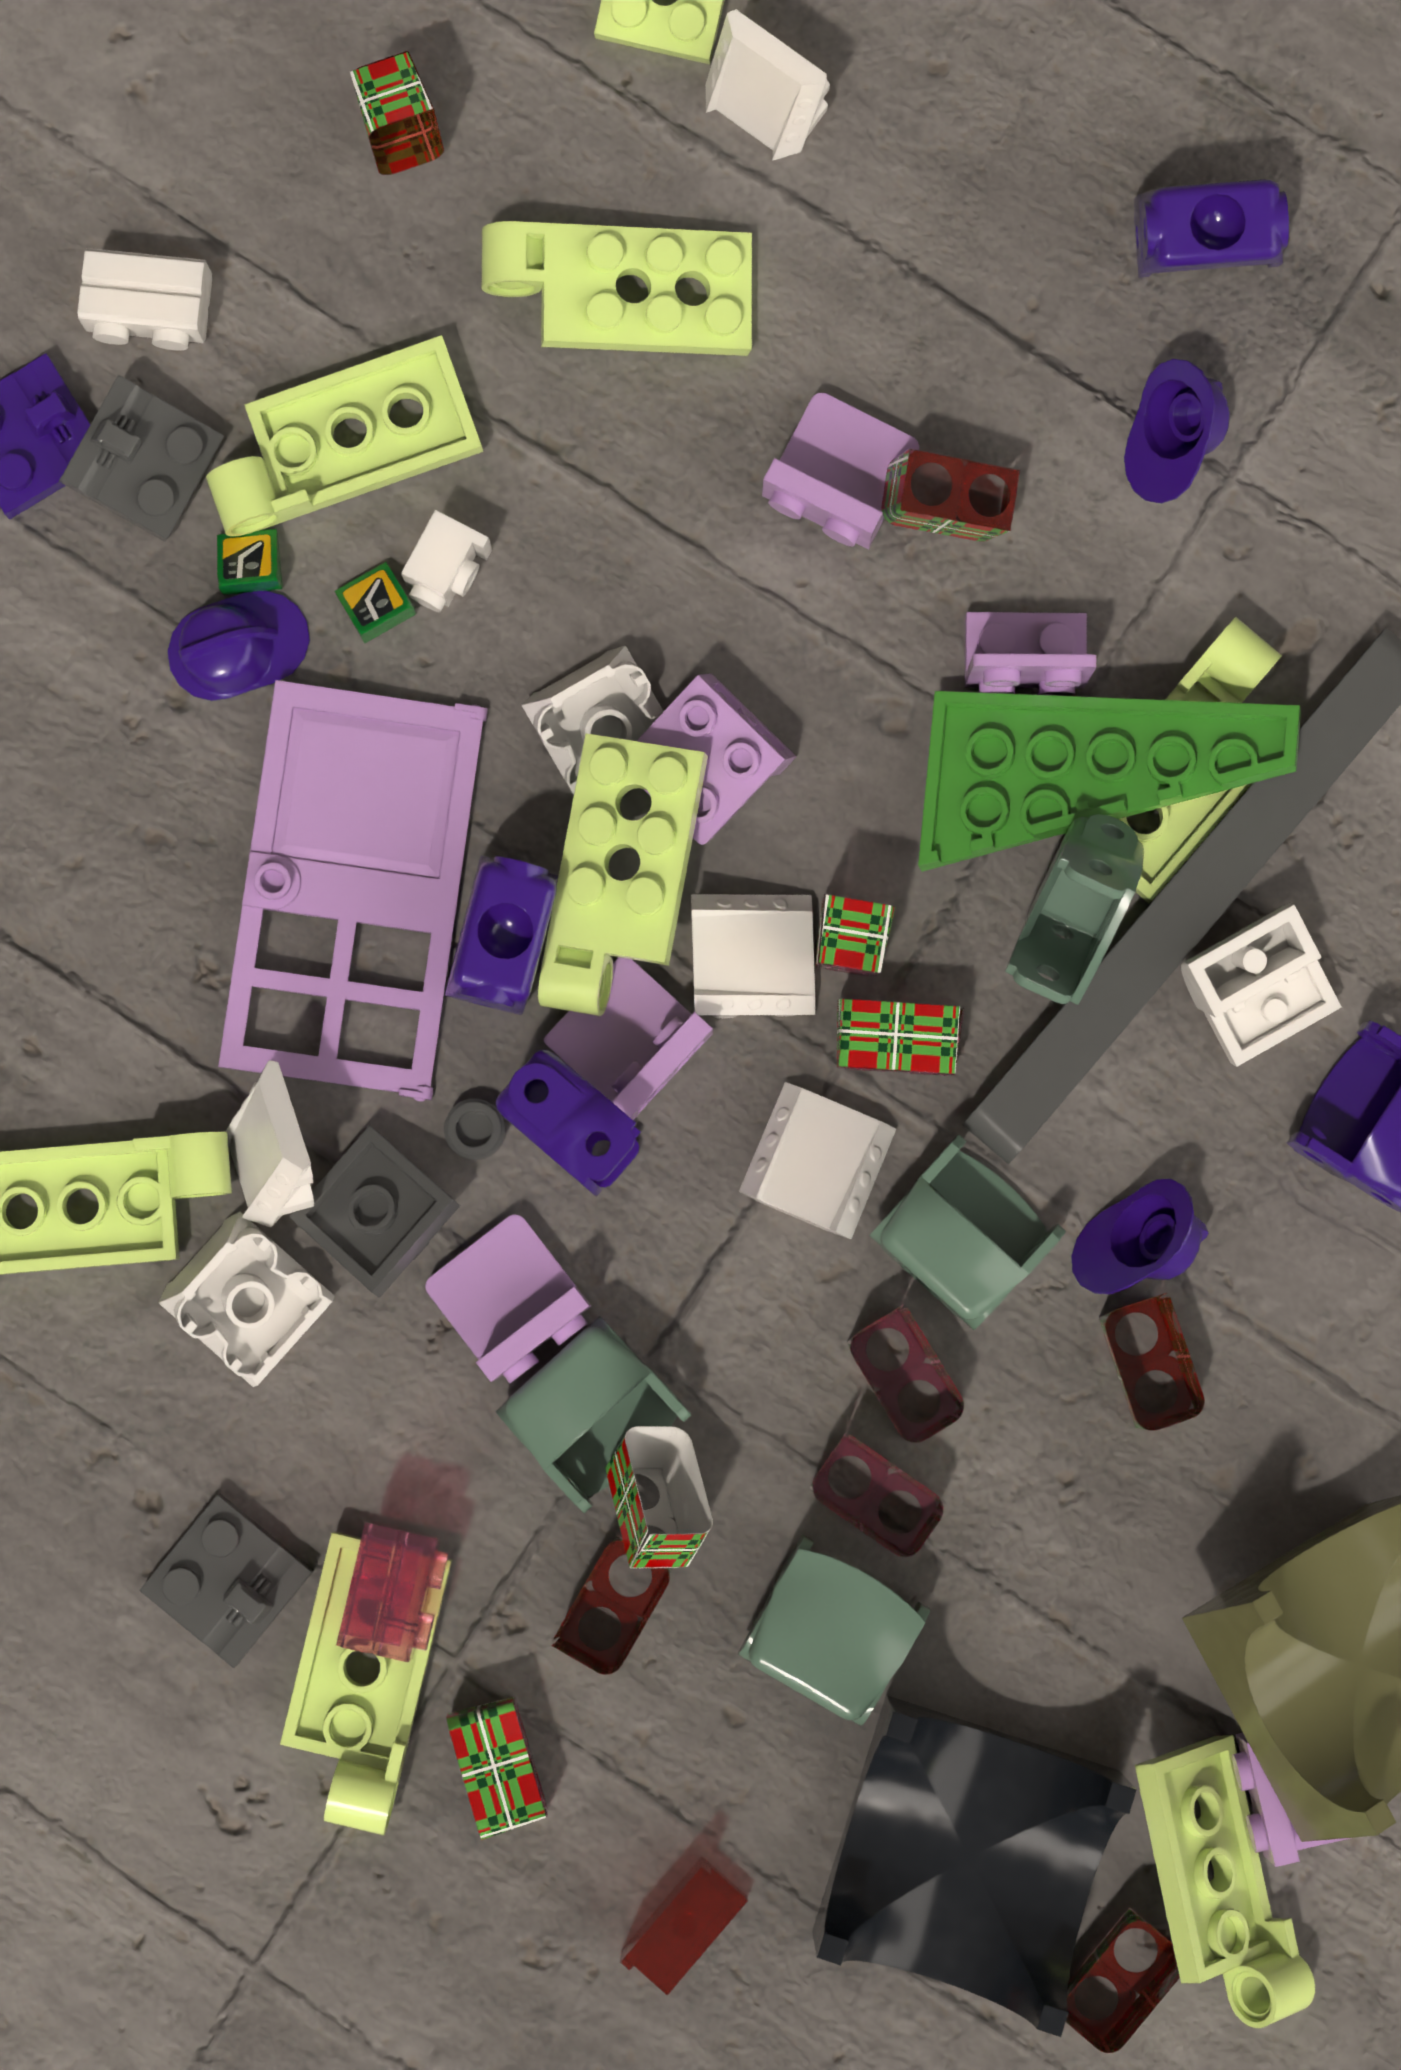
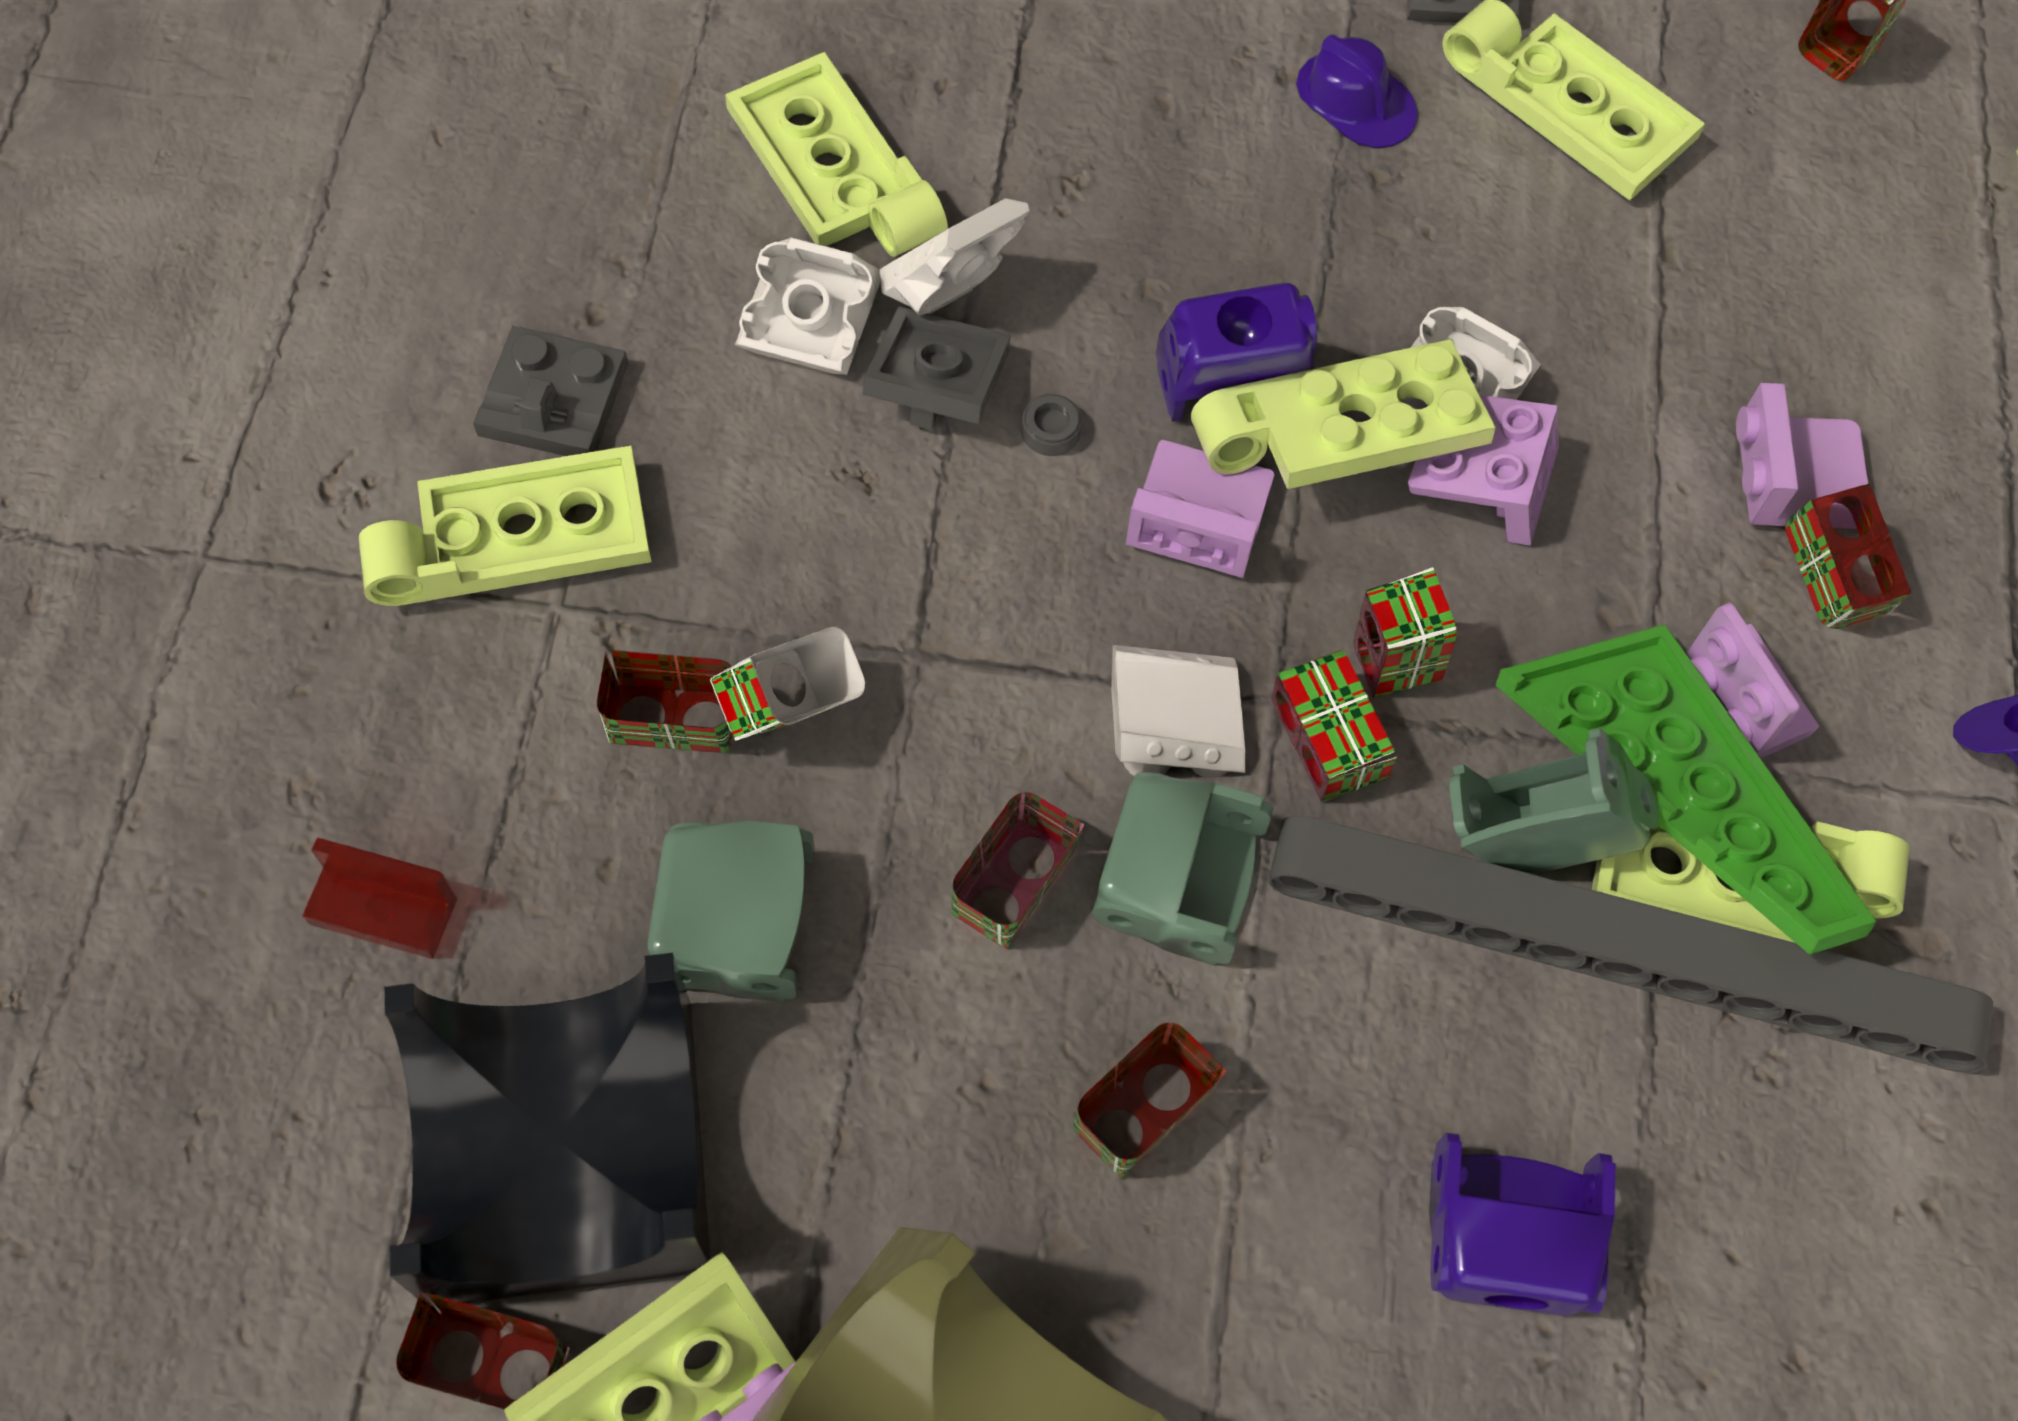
camera: 60 degrees right, 20 degrees down
(249, 562) = (1427, 74): slope -> none
(363, 827) = (1235, 222): lavender door -> none
(375, 602) = (1452, 175): slope -> none
(391, 1591) = (596, 498): clear pink brick -> none
(444, 561) = (1523, 199): white brick -> none
(497, 1766) = (469, 667): piece -> none
(508, 1298) = (912, 505): lavender bracket -> none
(567, 1119) = (1106, 432): dark purple piece -> none
(579, 276) = (1823, 193): yellowish green hinge -> none
(584, 1406) = (850, 585): sand green piece -> none
(753, 955) = (1323, 568): white slope -> none
(868, 1504) = (871, 840): clear pink piece -> none
(1139, 1238) = (1265, 1039): dark purple piece -> none
(1260, 984) = (1580, 1035): white brick -> none

